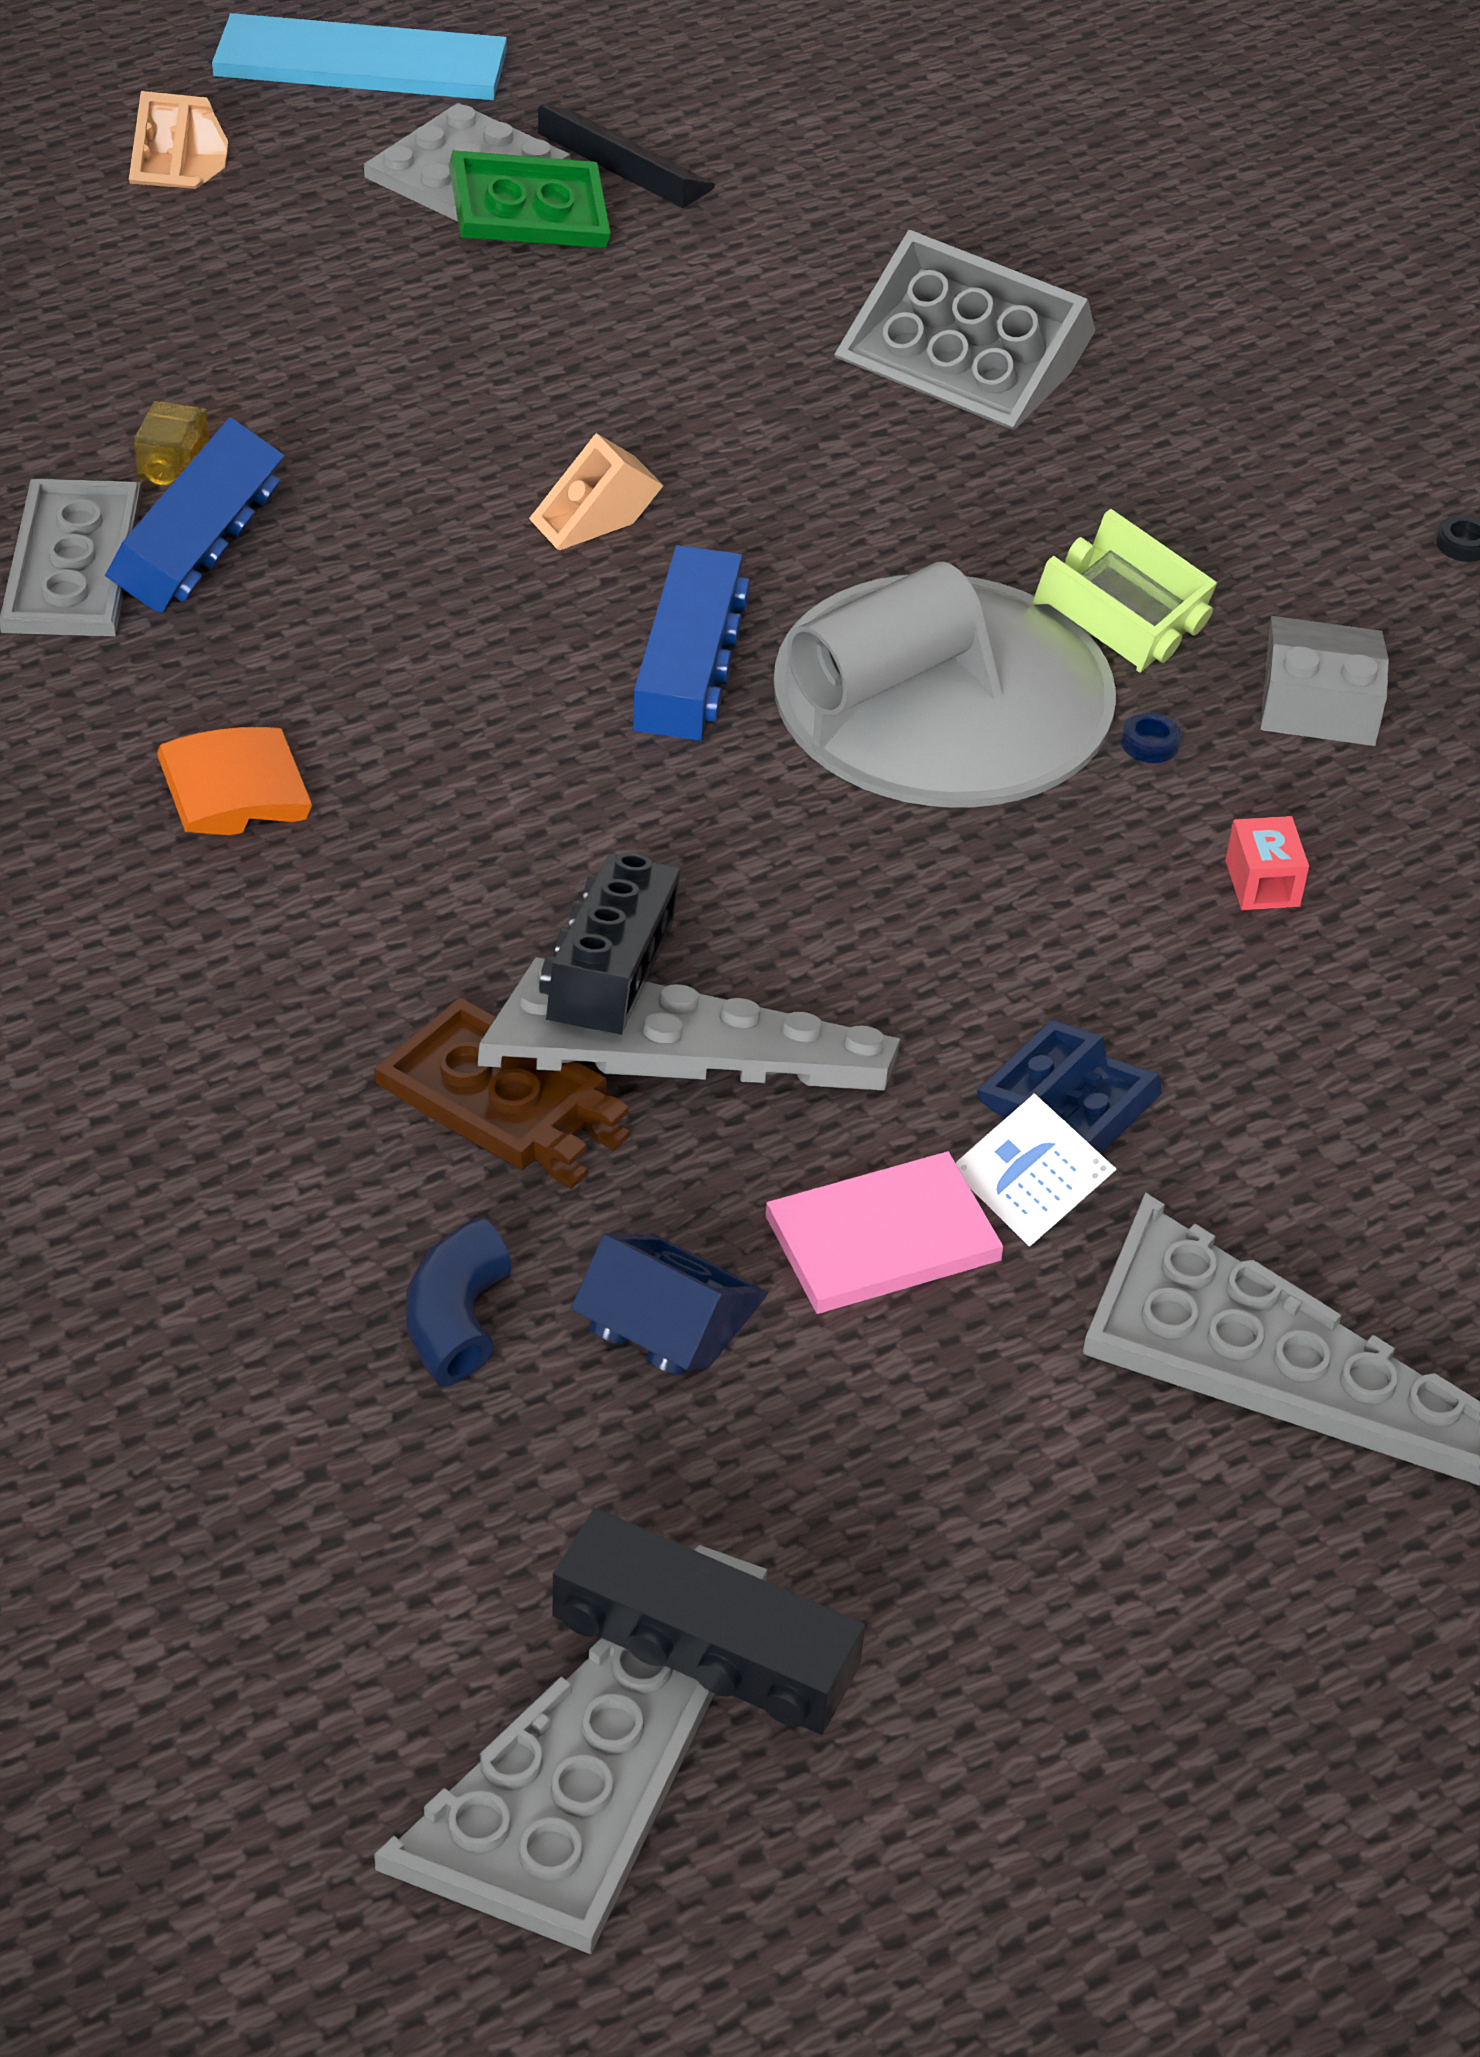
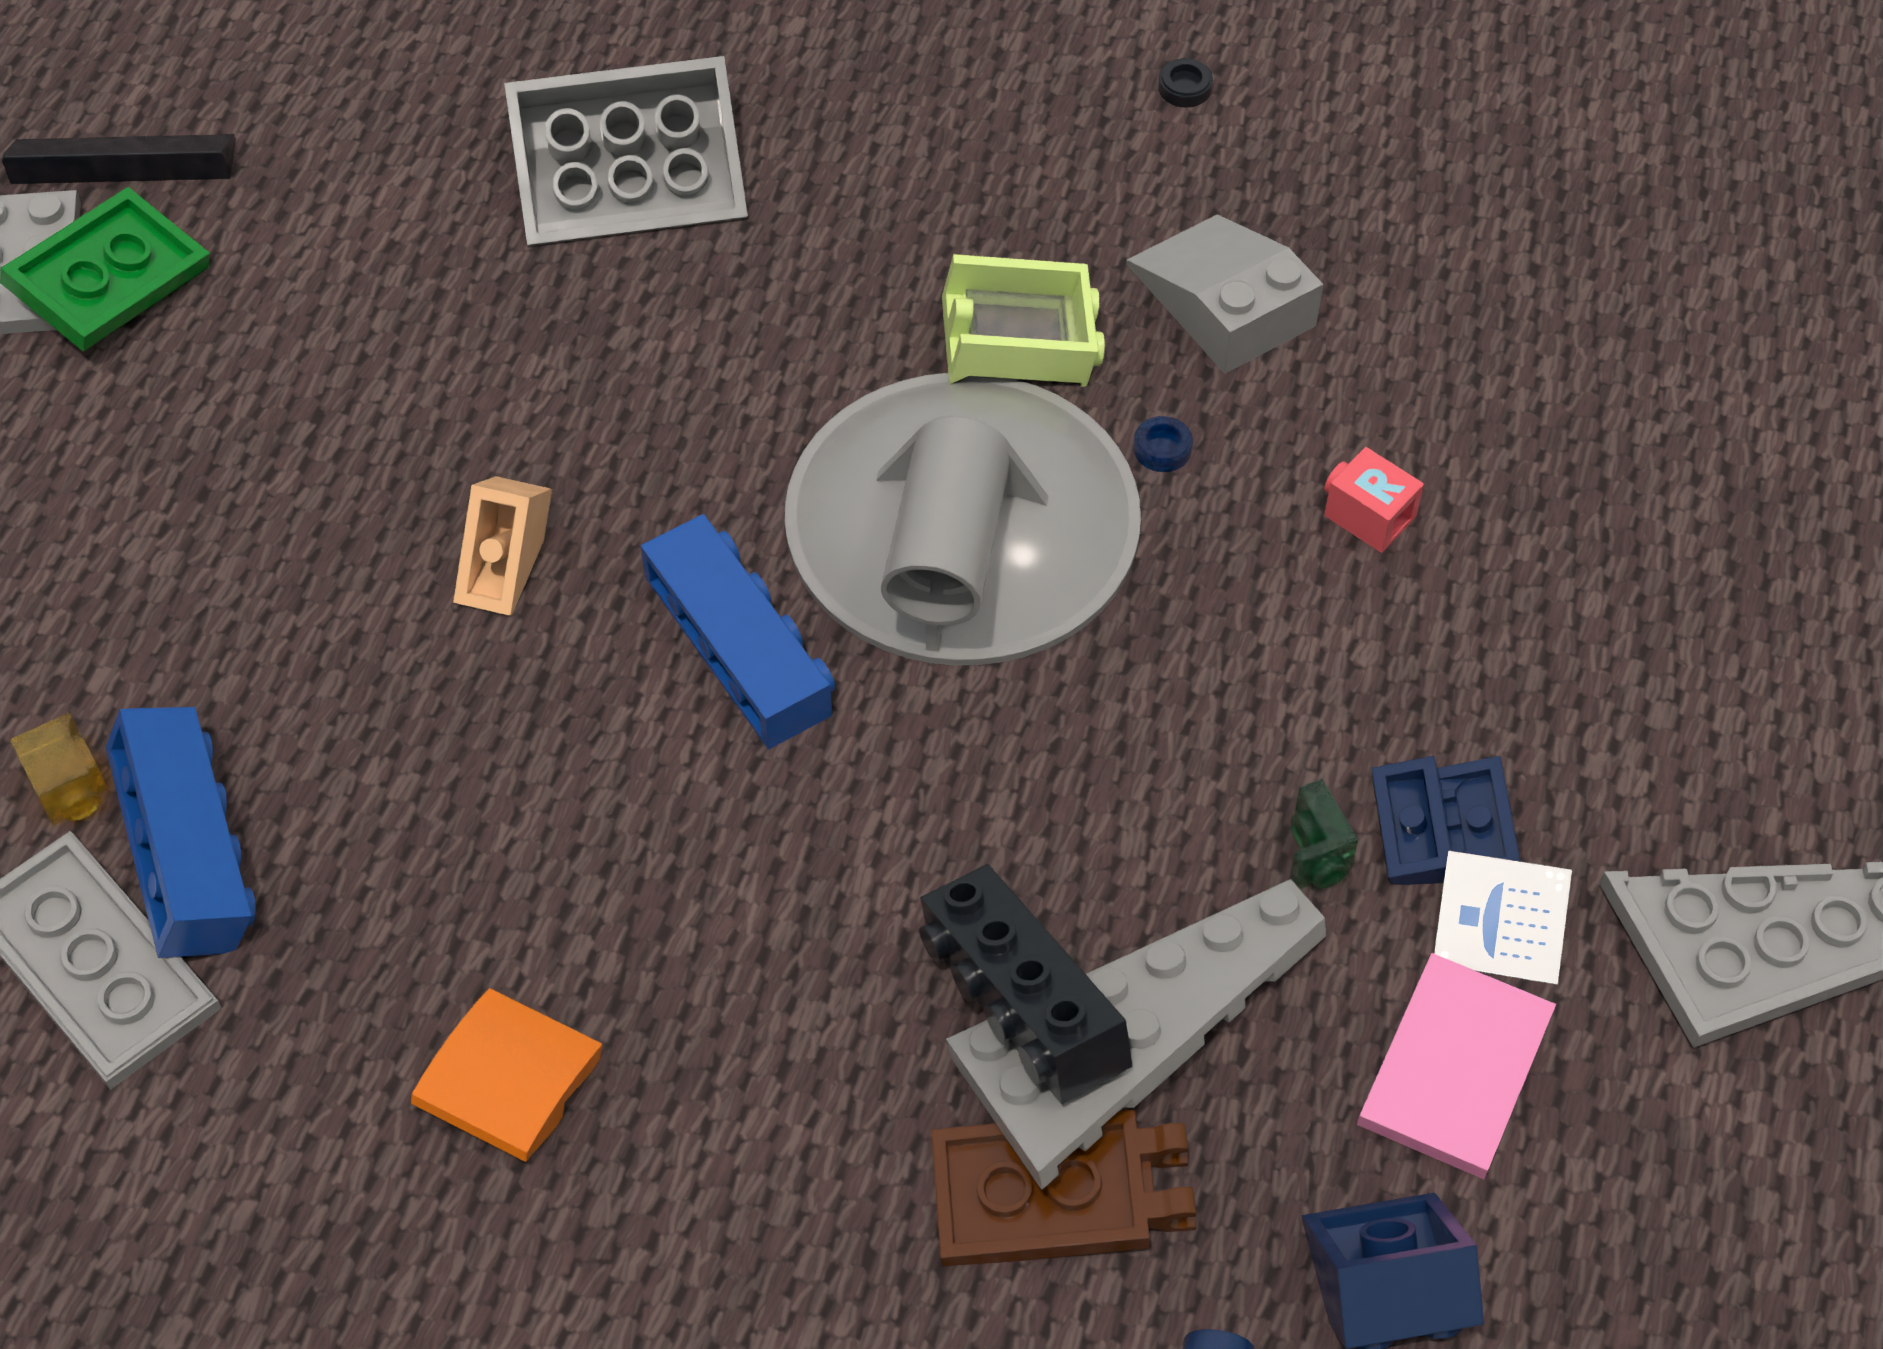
camera: 40 degrees left, 10 degrees up
(949, 1036) = (1324, 839): none -> clear green bracket

